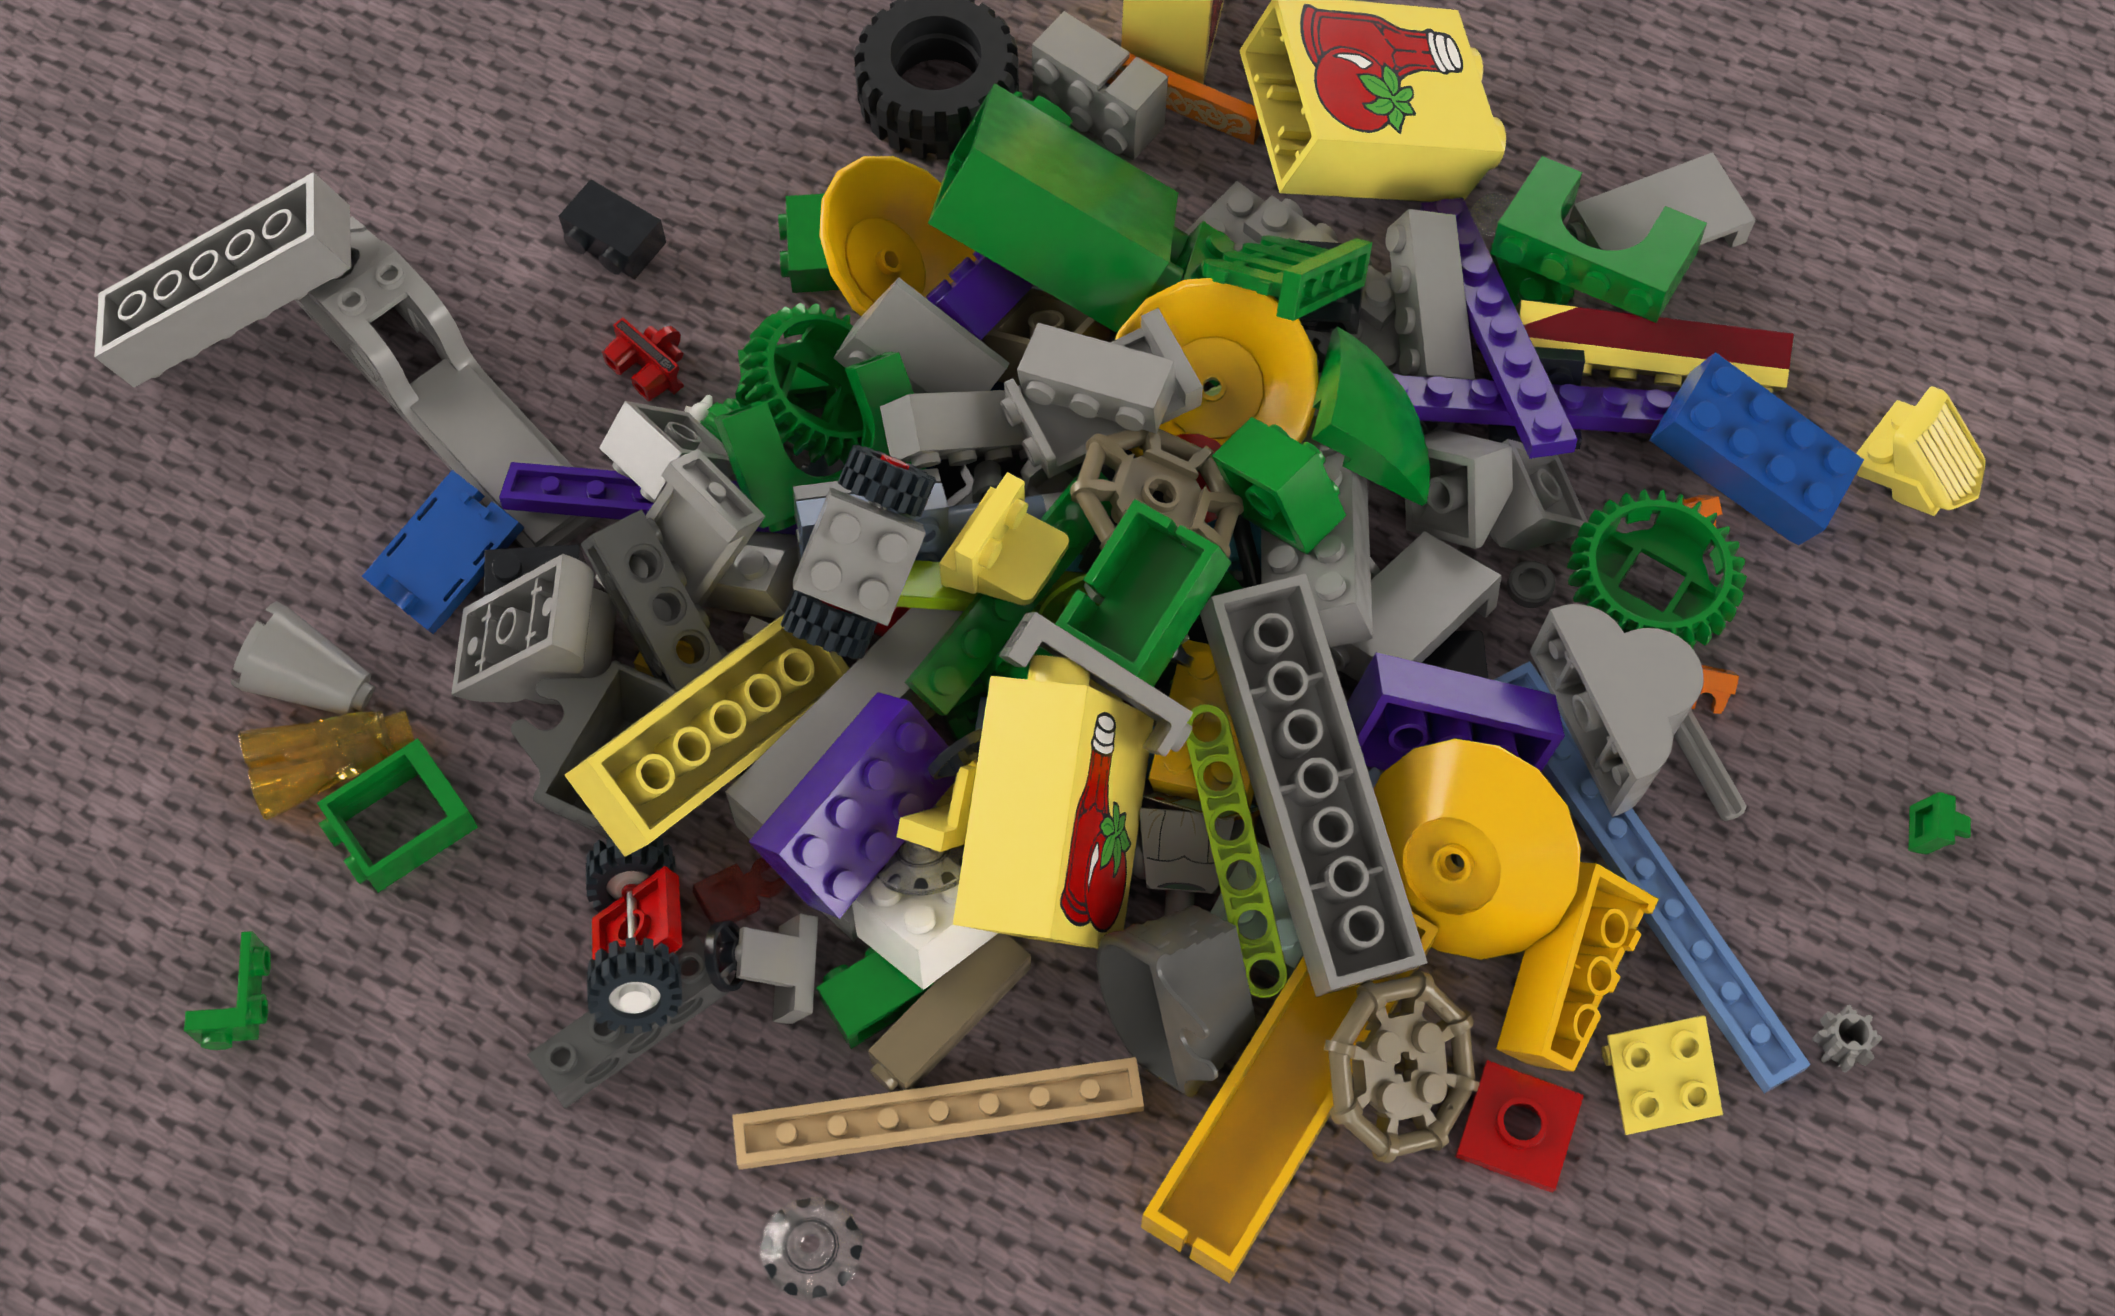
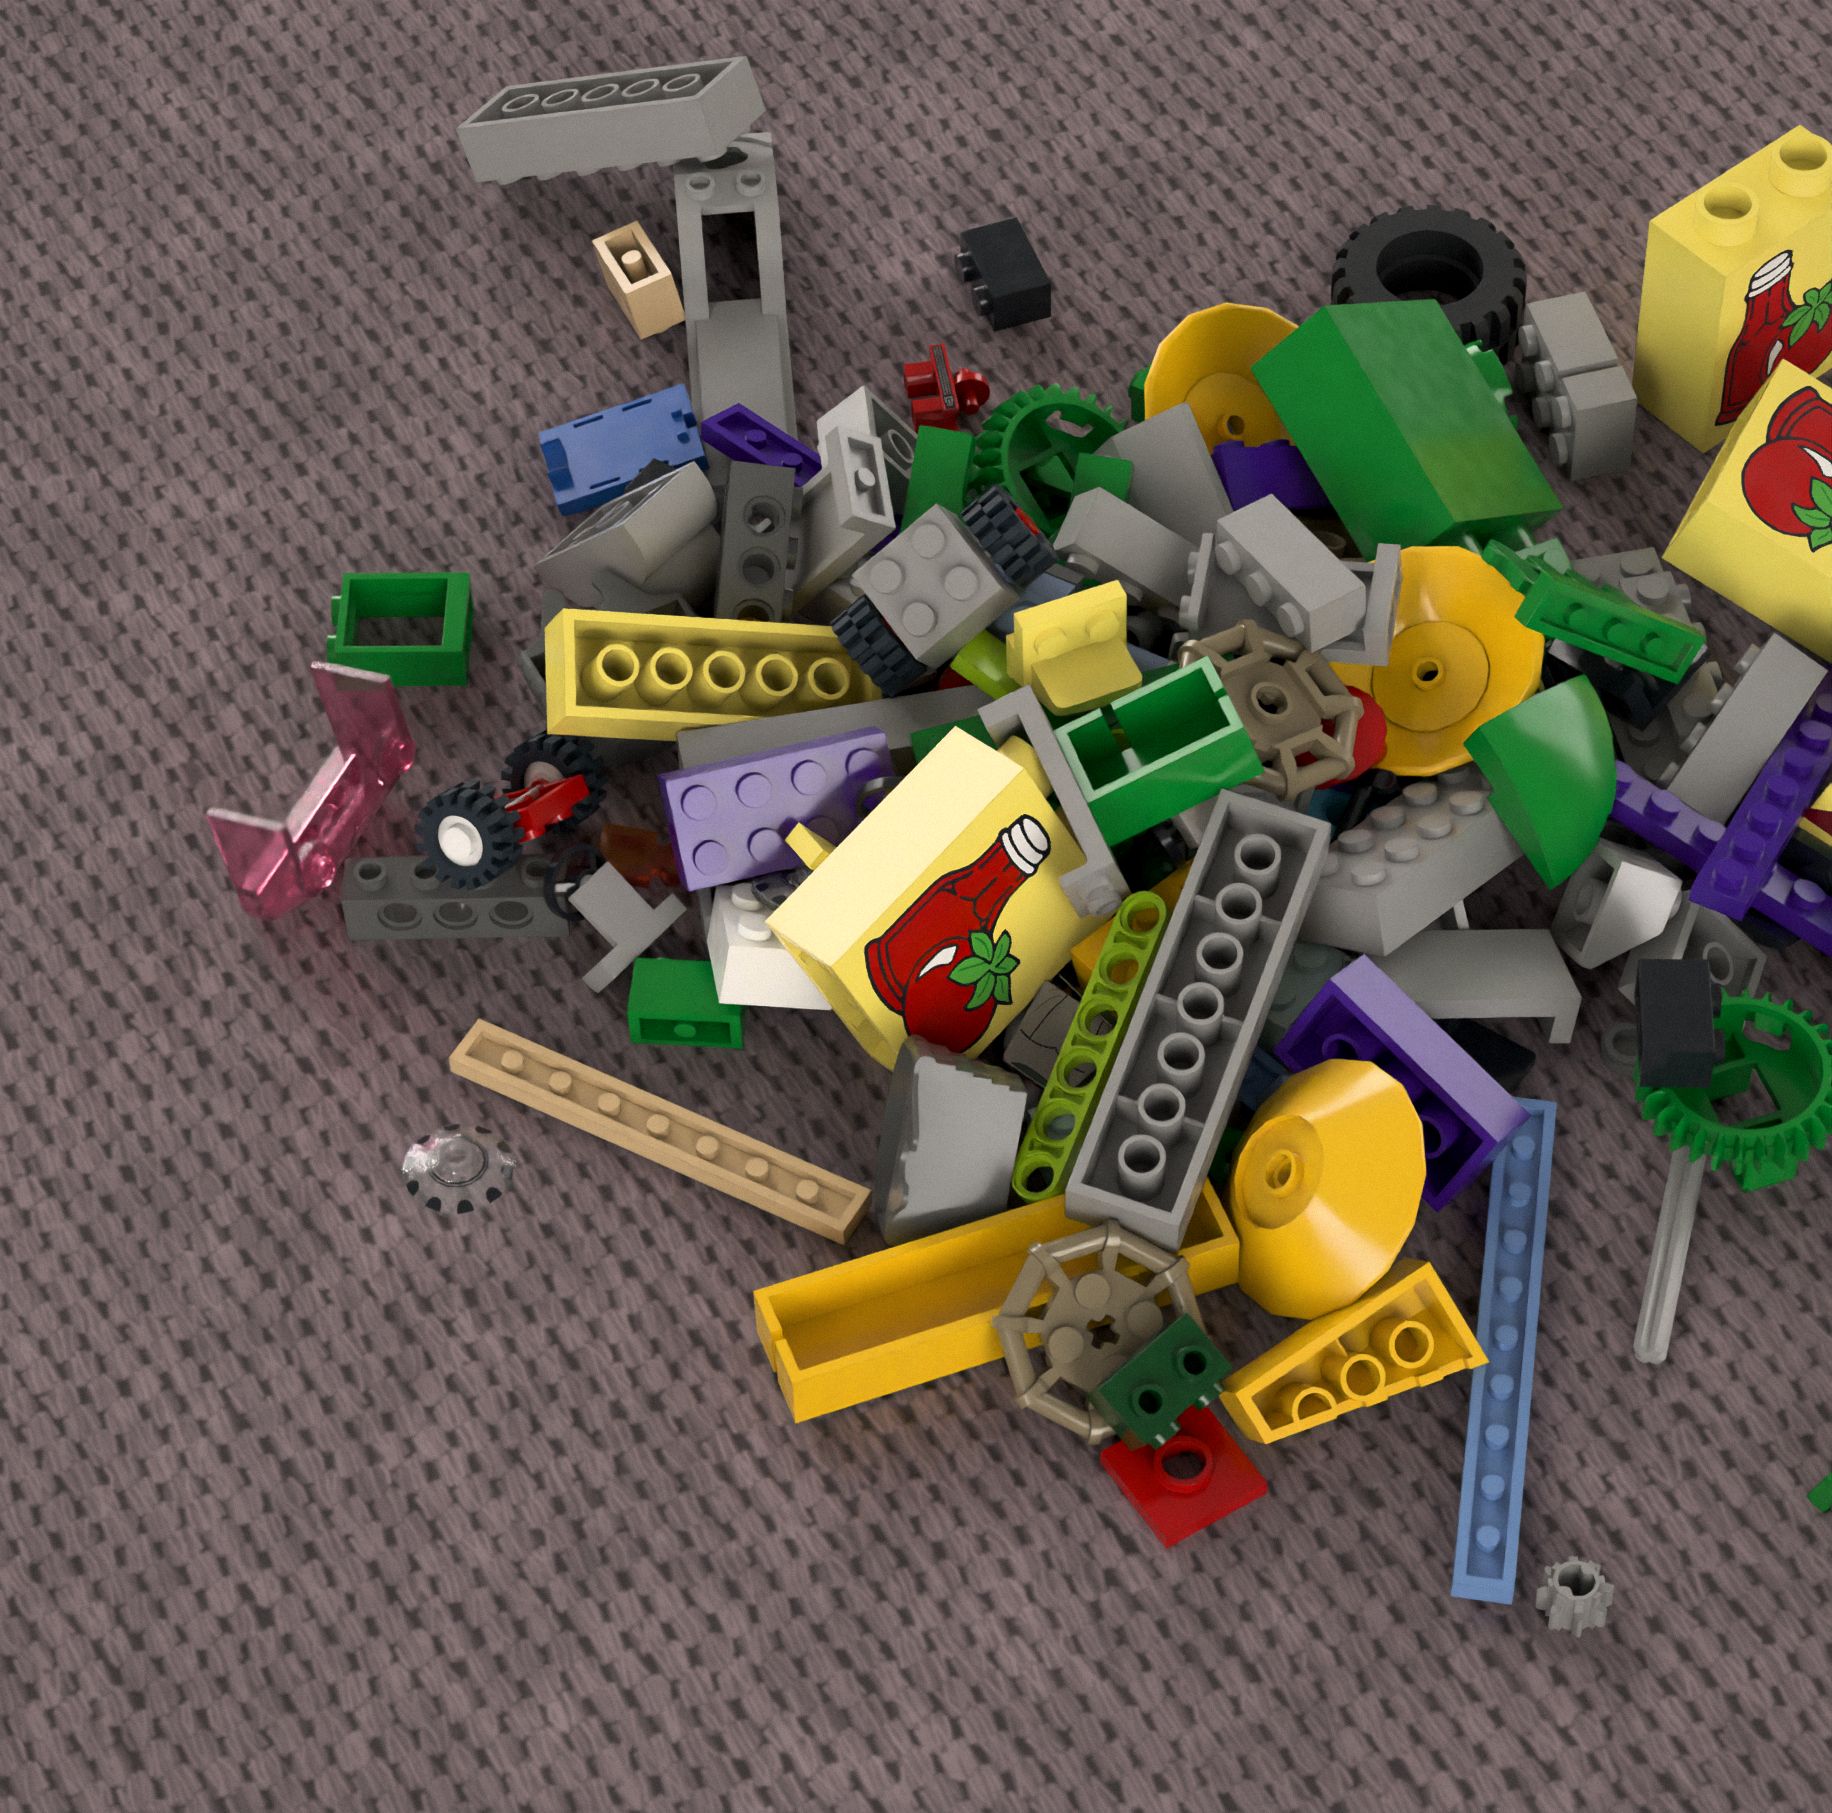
camera: 40 degrees right, 15 degrees down
(219, 1027) = (147, 708): green bracket -> none
(300, 666) = (421, 463): light grey cone -> none
(306, 758) = (362, 539): clear yellow piece -> none
(342, 400) = (639, 280): none -> tan brick
(479, 1018) = (295, 860): none -> clear pink windscreen
(947, 1013) = (739, 1055): dark tan brick -> none
(1206, 105) = (1665, 441): orange tile -> none
(1281, 484) = (1397, 763): green brick -> none
(1477, 1080) = (1159, 1383): none -> dark green brick
(1606, 562) = (1676, 1023): none -> black brick
(1617, 695) = (1606, 1165): light grey brick -> none
(1664, 1074) = (1362, 1513): light yellow hinge -> none
(1720, 684) = (1734, 1231): orange tile -> none

